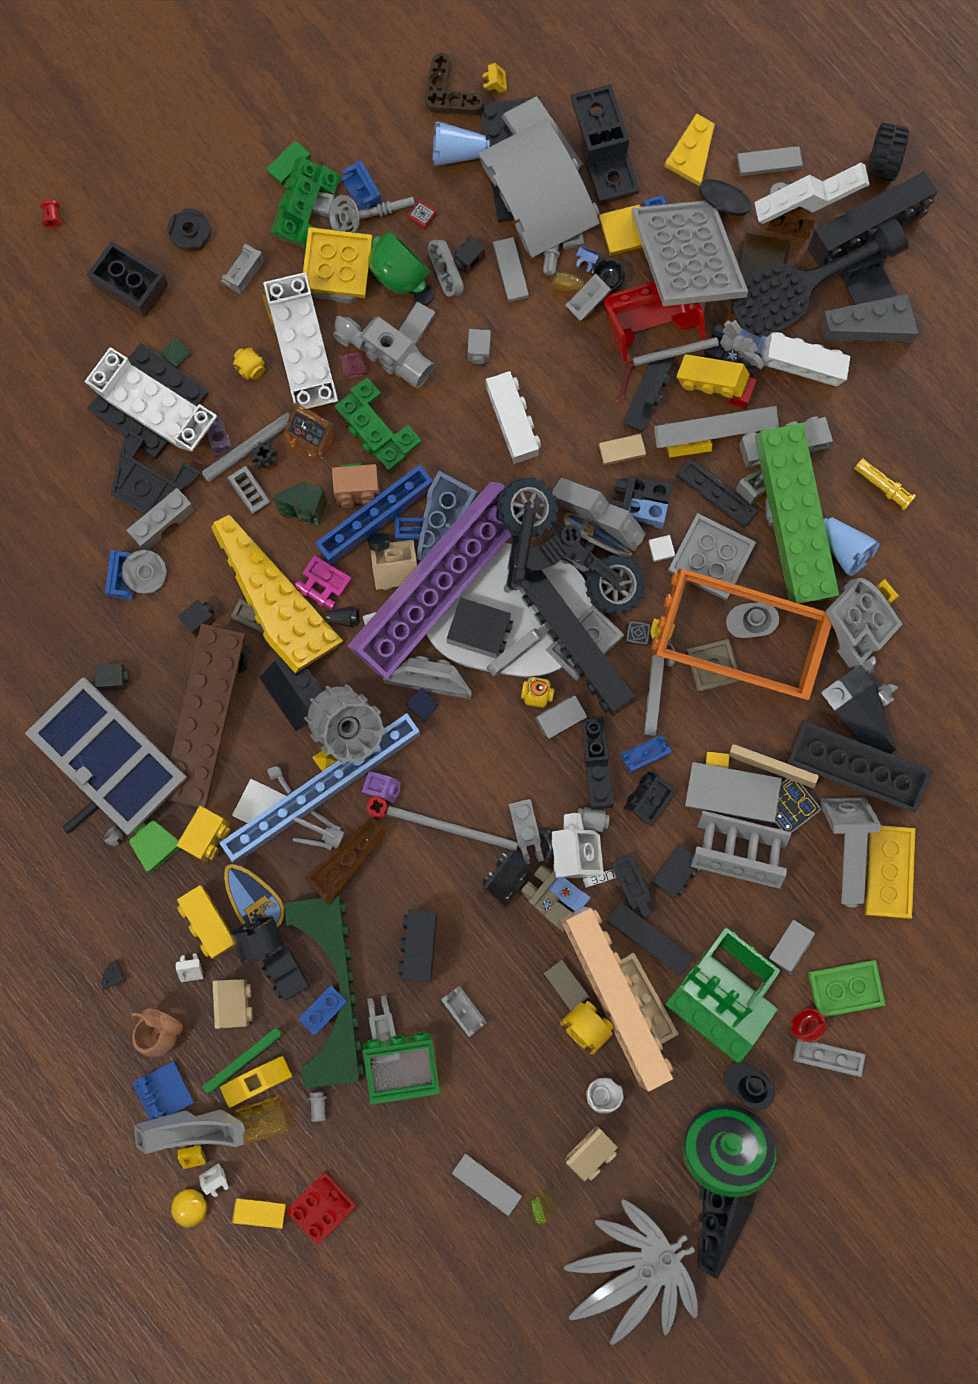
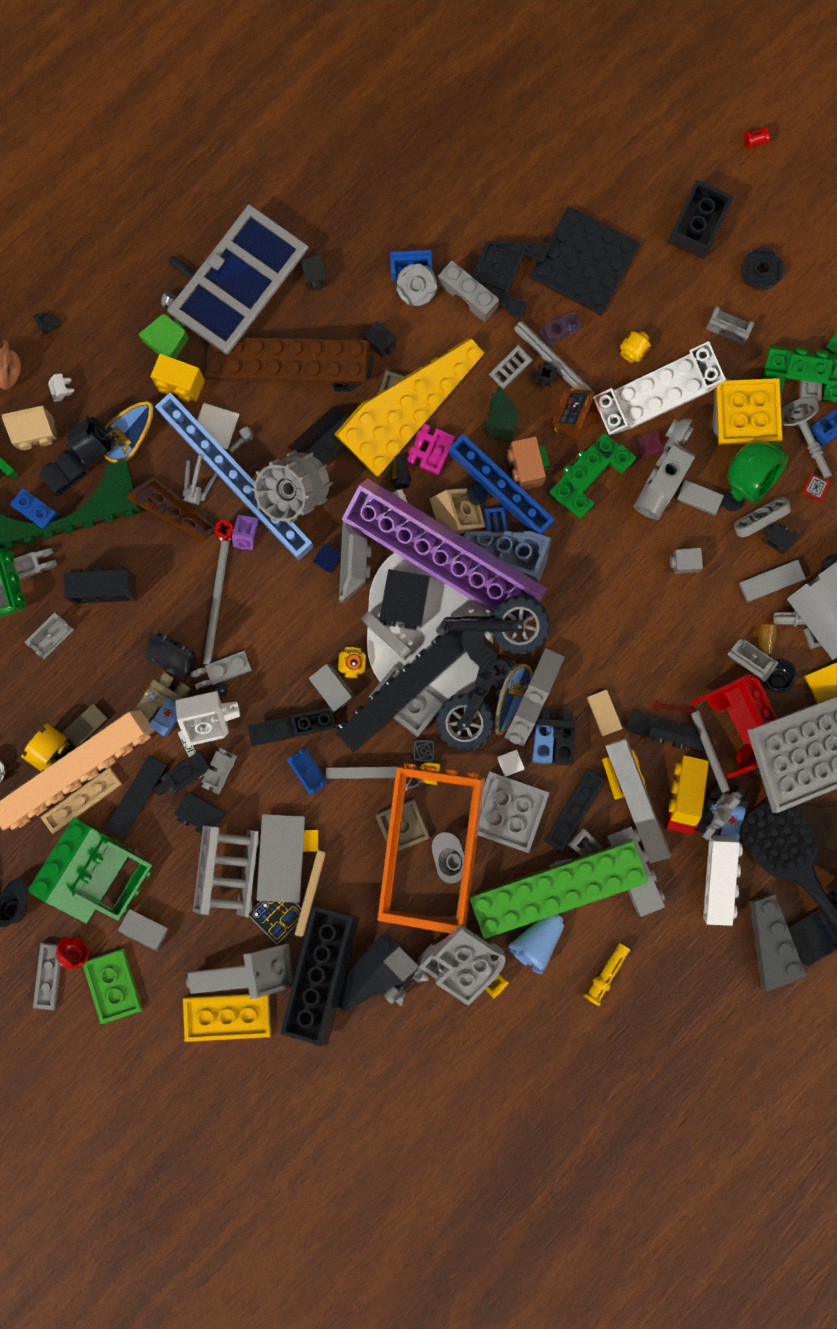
camera: 85 degrees right, 5 degrees up
(149, 401) = (580, 259): white slope -> none
(175, 353) = (635, 277): clear green tile -> none
(205, 922) = (102, 394): yellow brick -> none
(512, 417) = (620, 602): white brick -> none
(589, 256) = (798, 654): tile -> none
(594, 819) = (238, 730): light grey brick -> none
(634, 844) = (216, 779): none -> light grey hinge
(650, 798) = (266, 780): black bracket -> none

